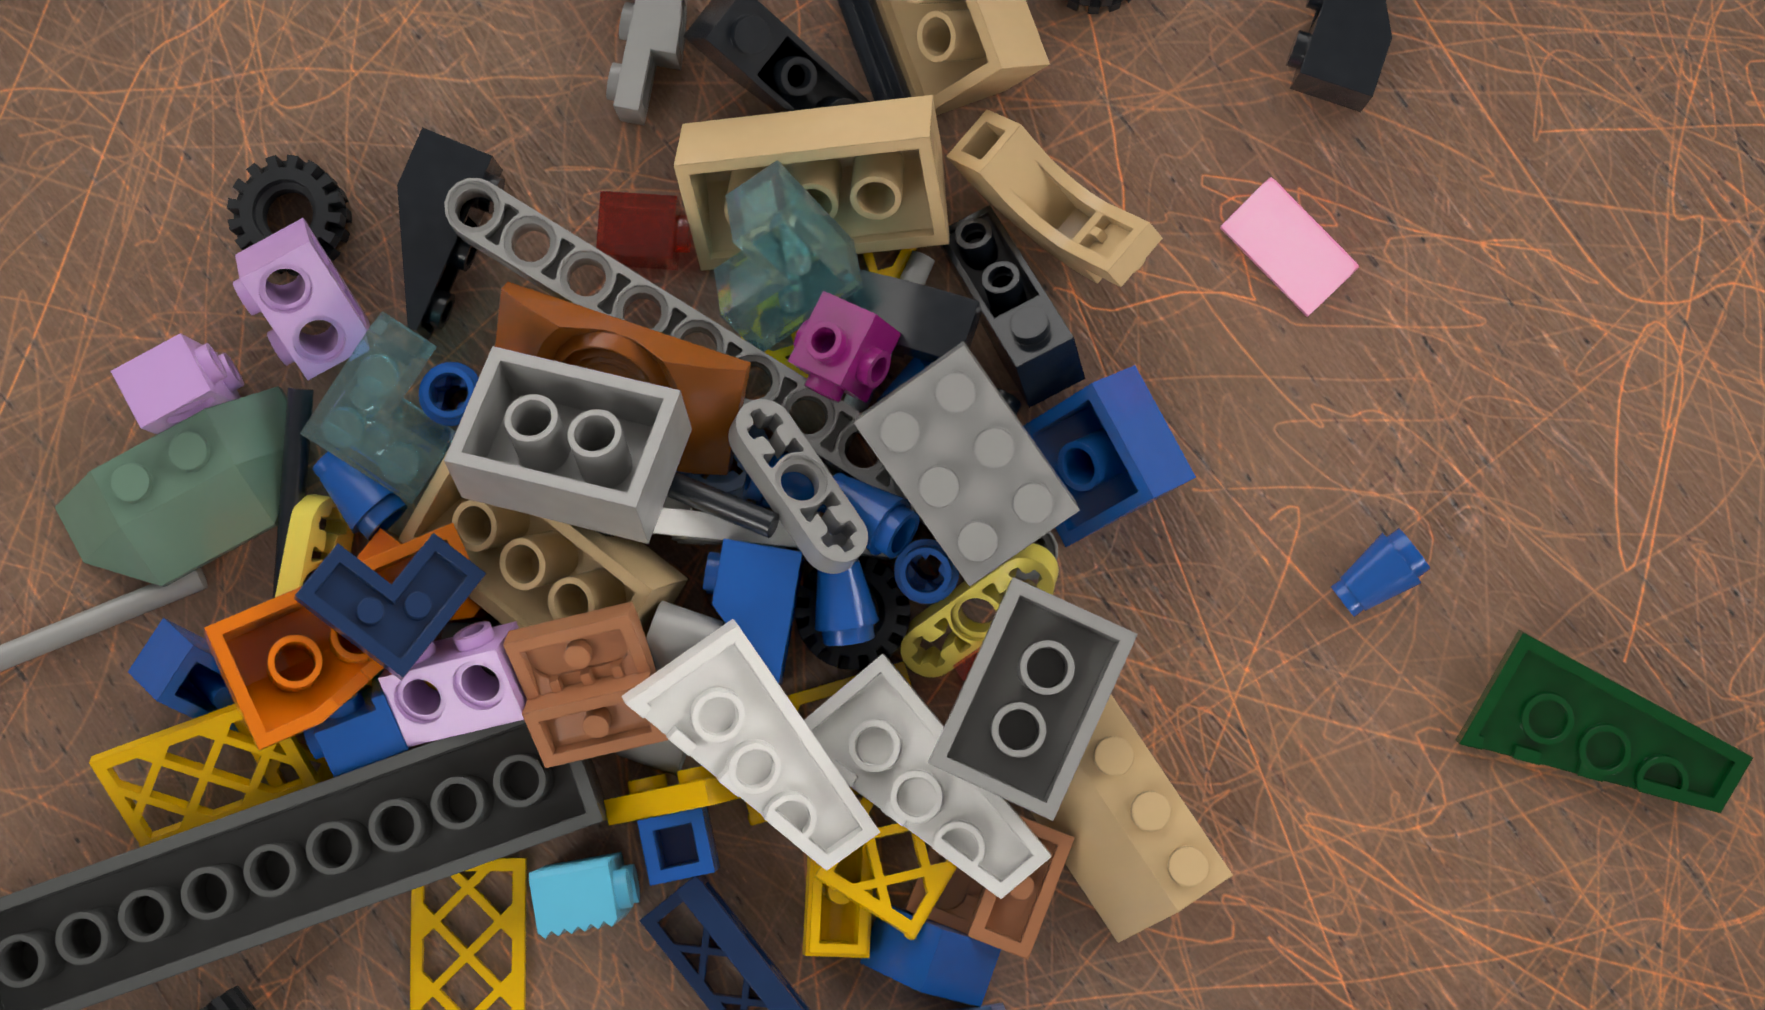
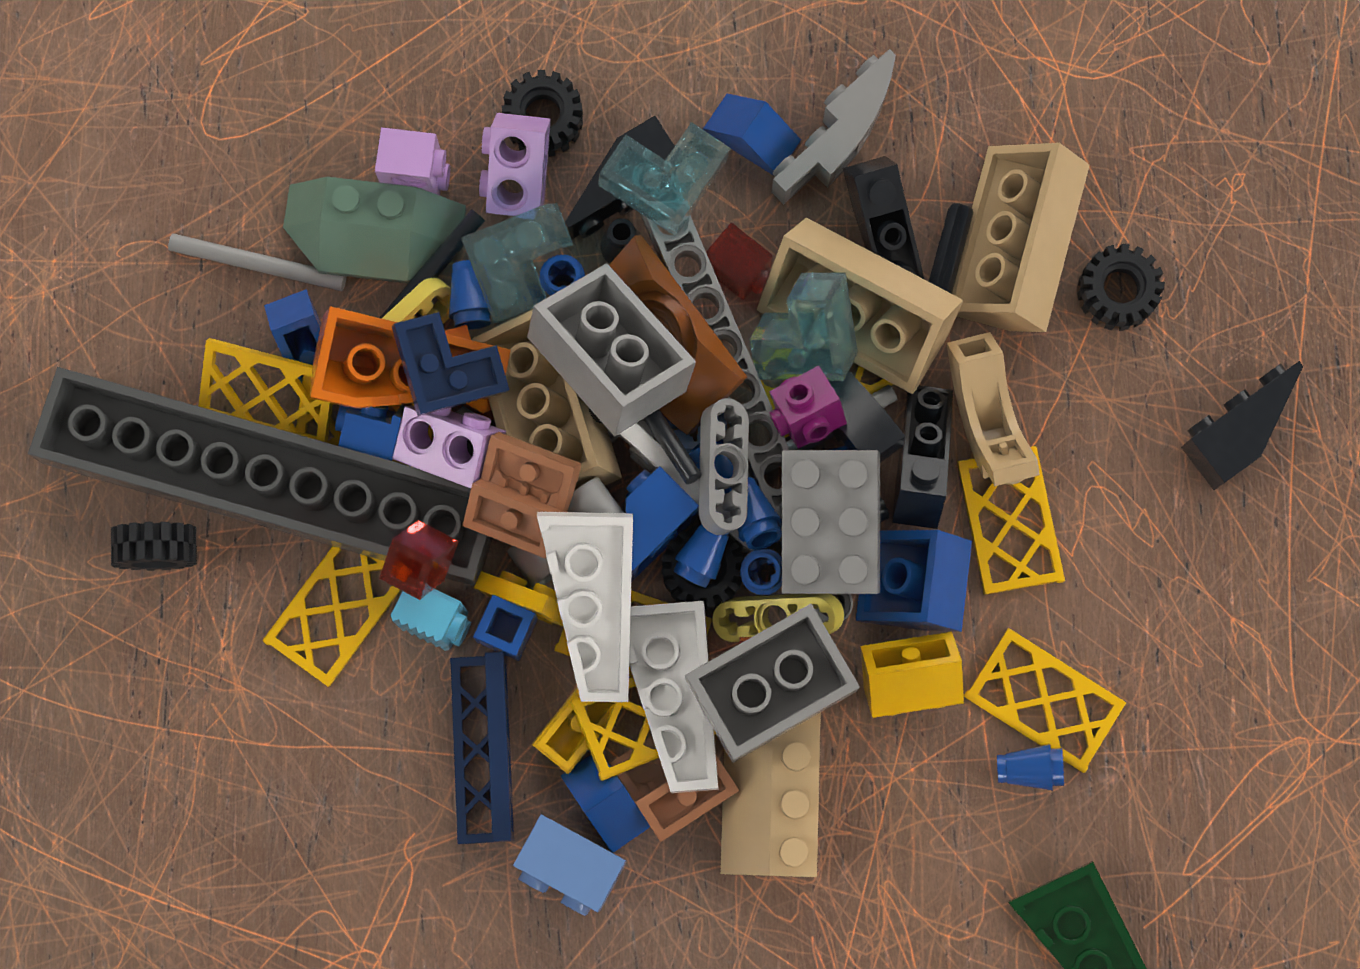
camera: 30 degrees right, 5 degrees down
(483, 318) = (609, 245): none -> black cone
(497, 211) = (665, 188): none -> clear light blue brick
(523, 848) = (418, 559): none -> clear red brick
(548, 65) = (753, 131): none -> blue slope
(1154, 361) = (985, 549): none -> yellow window
(1175, 565) = (911, 679): none -> yellow brick
(1289, 246) = (1114, 538): bright pink slope -> none
(1369, 441) = (1081, 686): none -> yellow window

